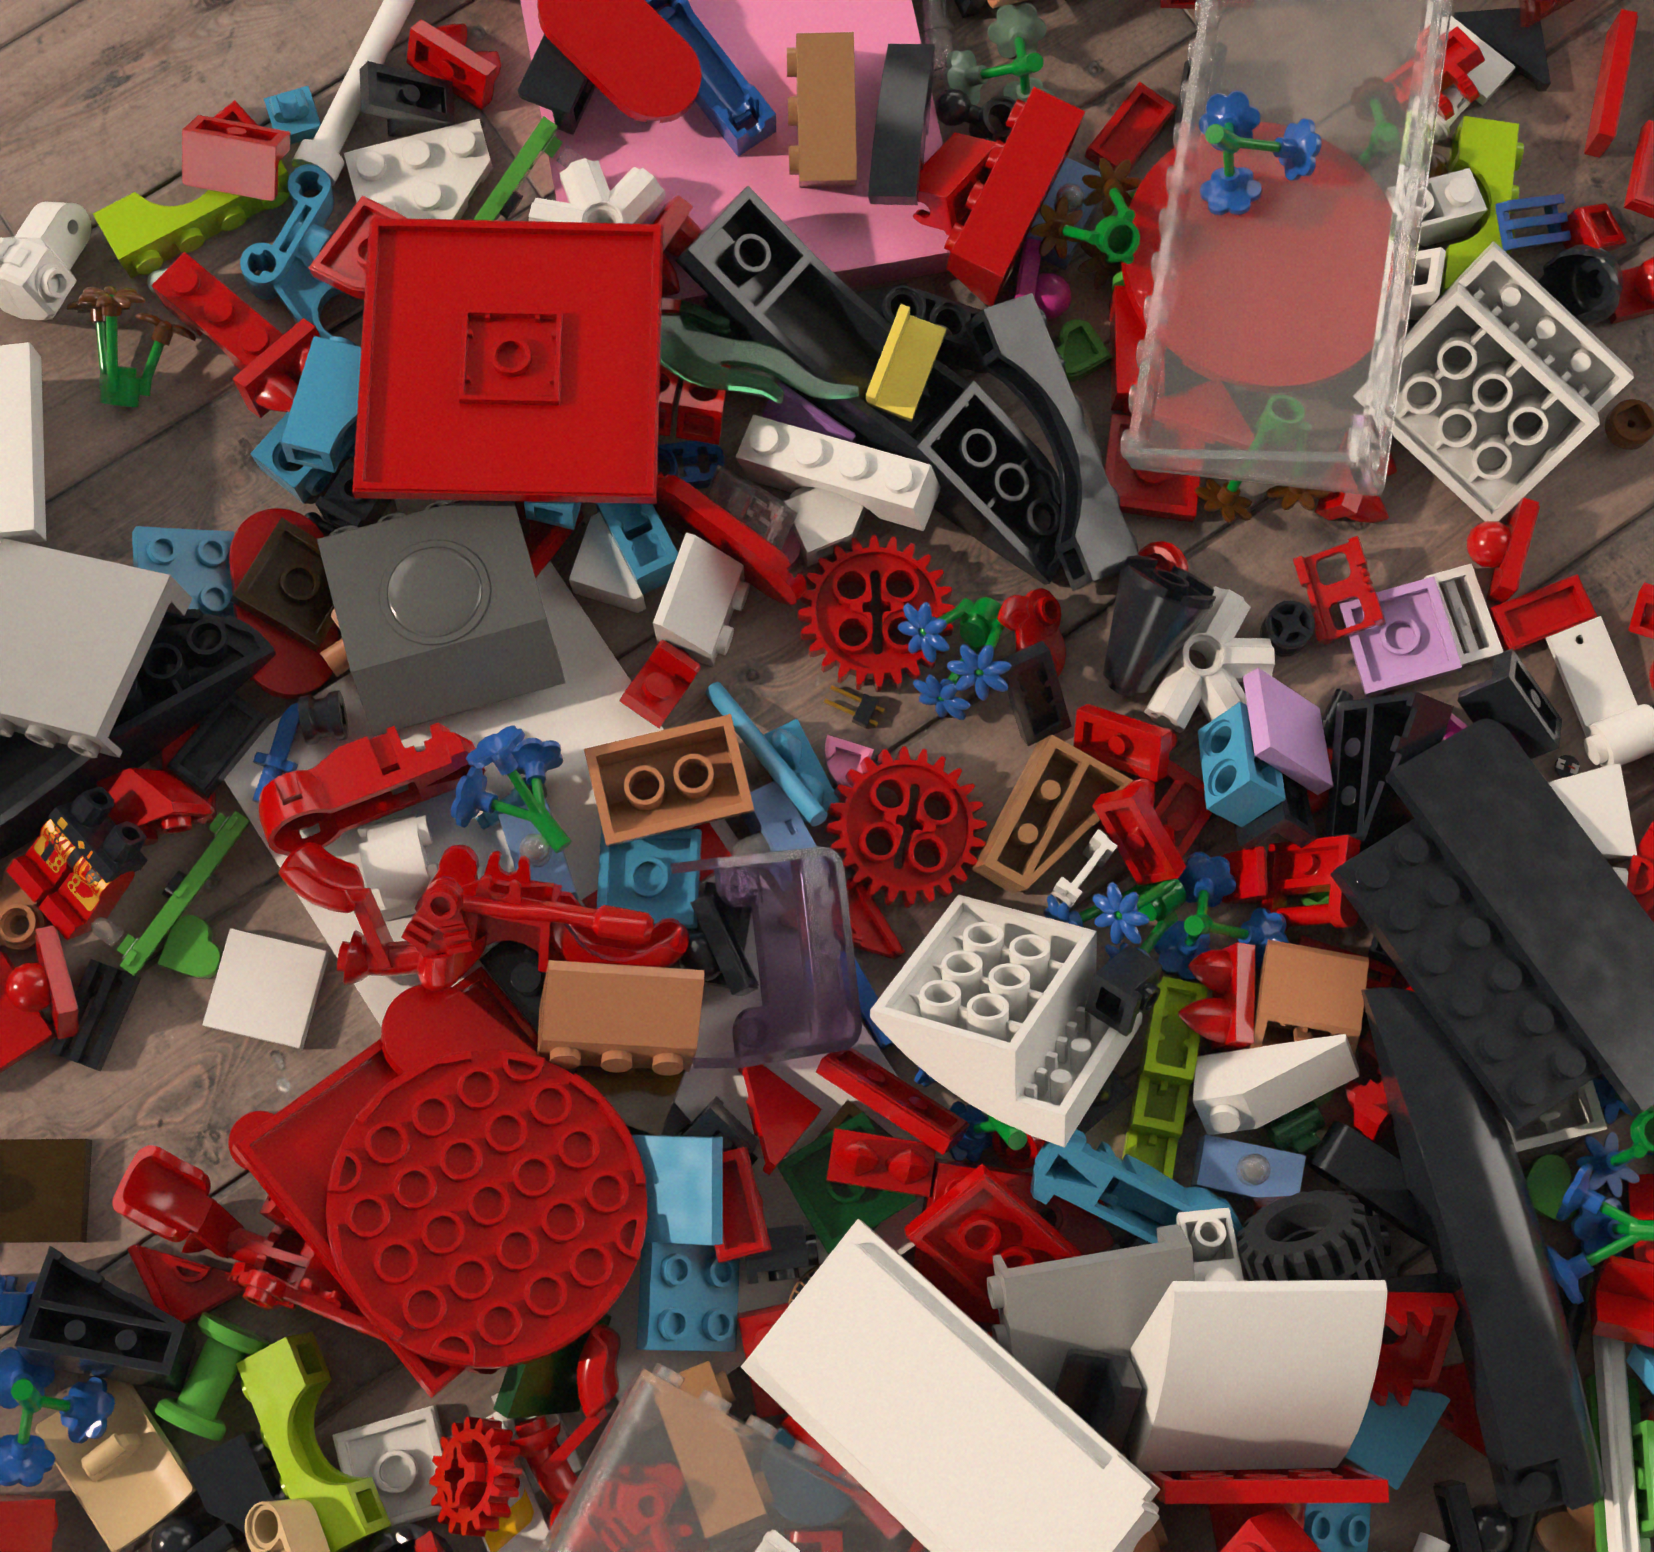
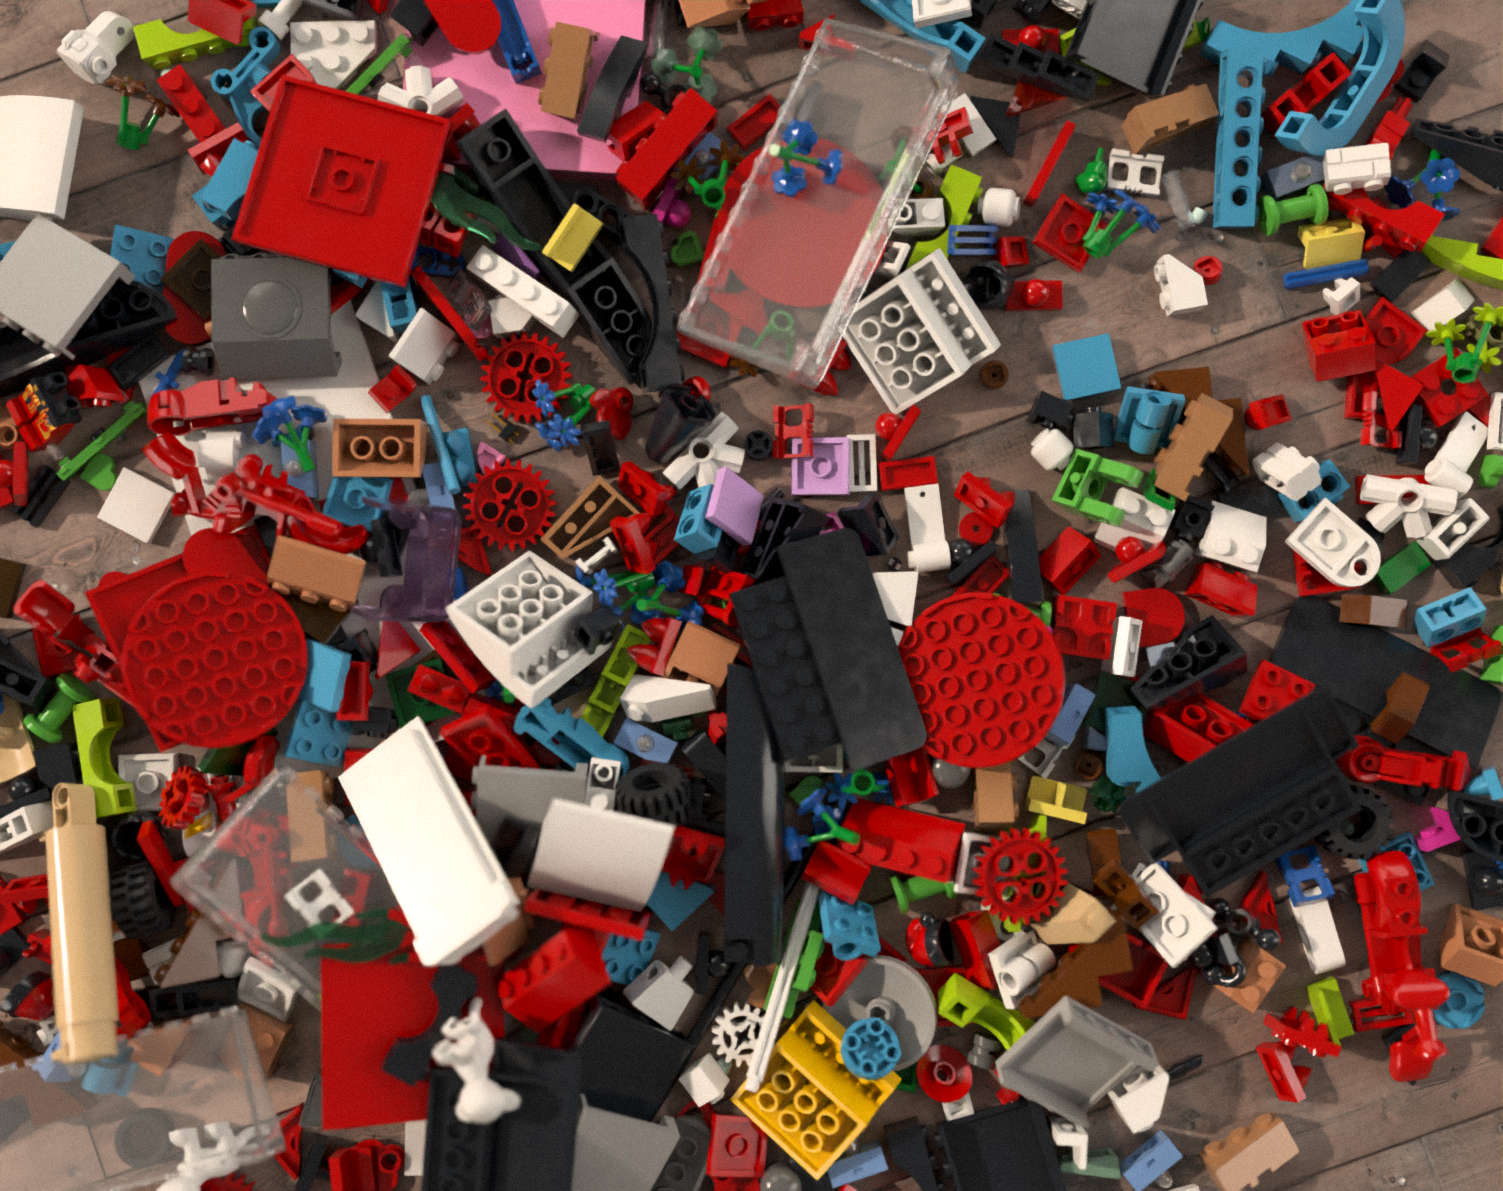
camera: 20 degrees right, 10 degrees up
(1556, 165) = (999, 207): none -> white head

